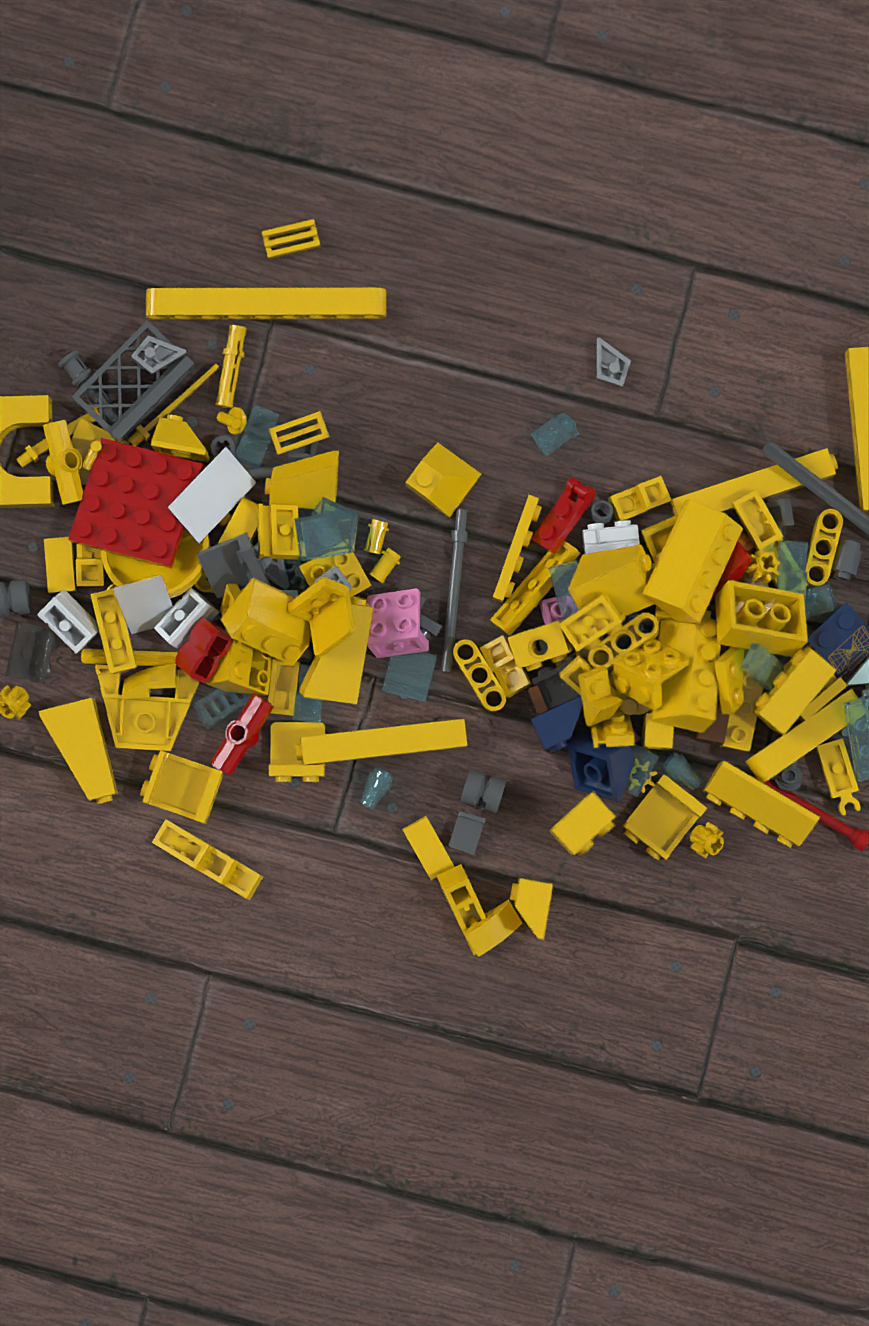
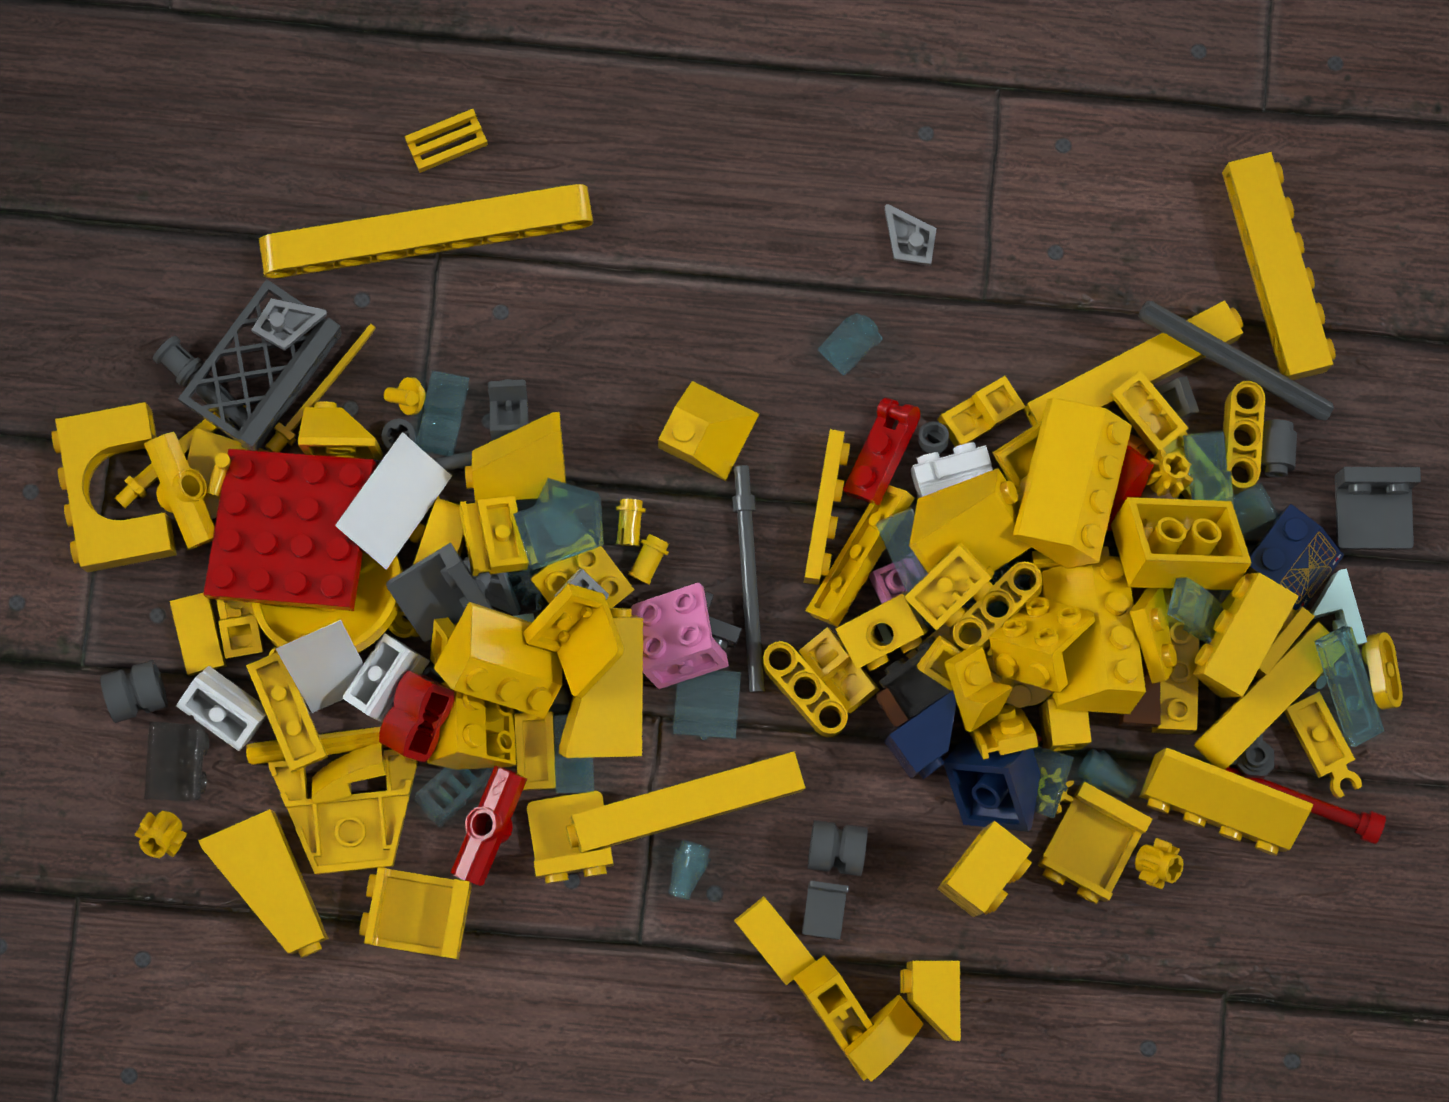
camera: 15 degrees left, 5 degrees down
(207, 859) = (468, 1009): yellow slope -> none
(229, 375) = (392, 314): yellow pin -> none
(321, 425) = (472, 411): yellow tile -> none

